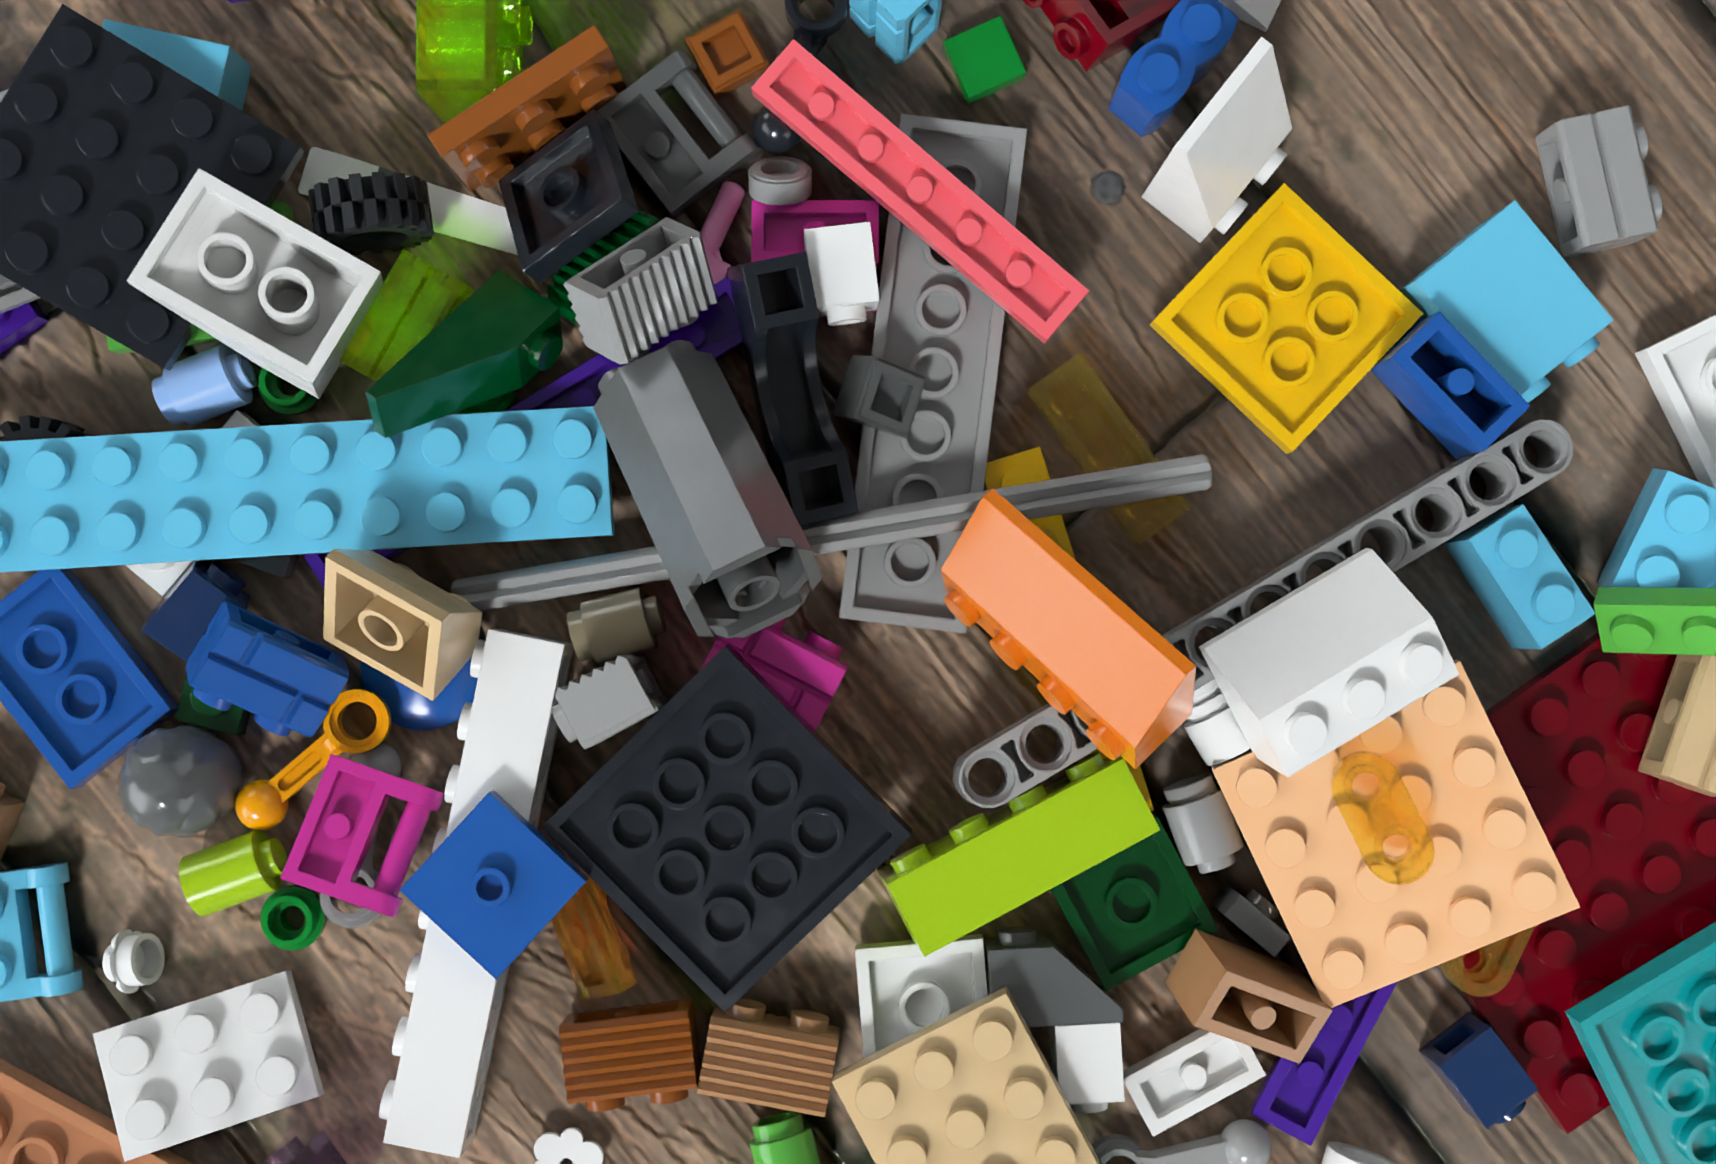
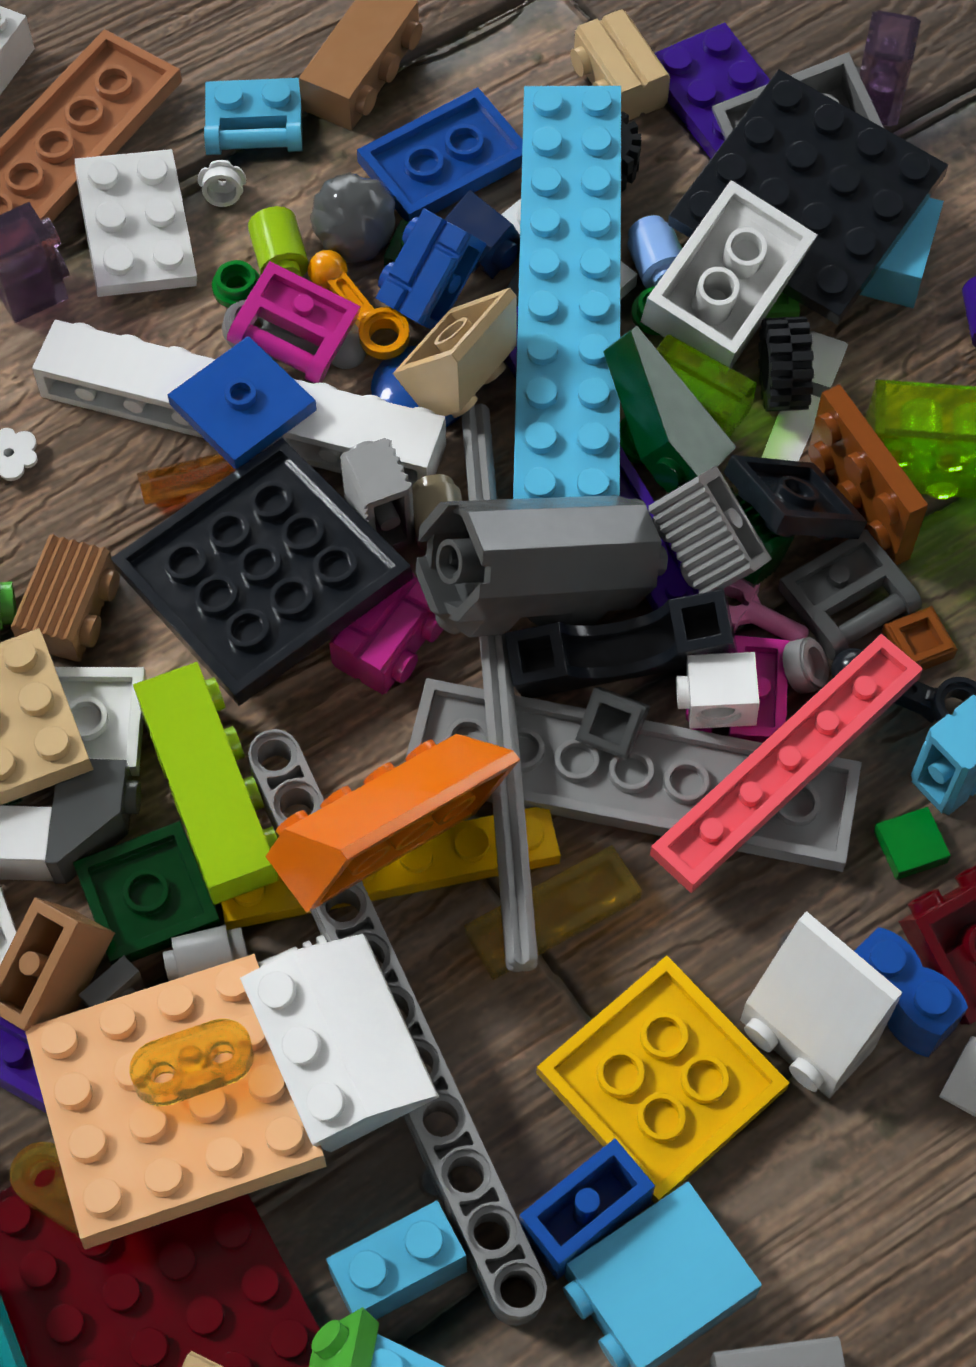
camera: 90 degrees right, 25 degrees down
(630, 1054) = (89, 495): dark orange brick -> none

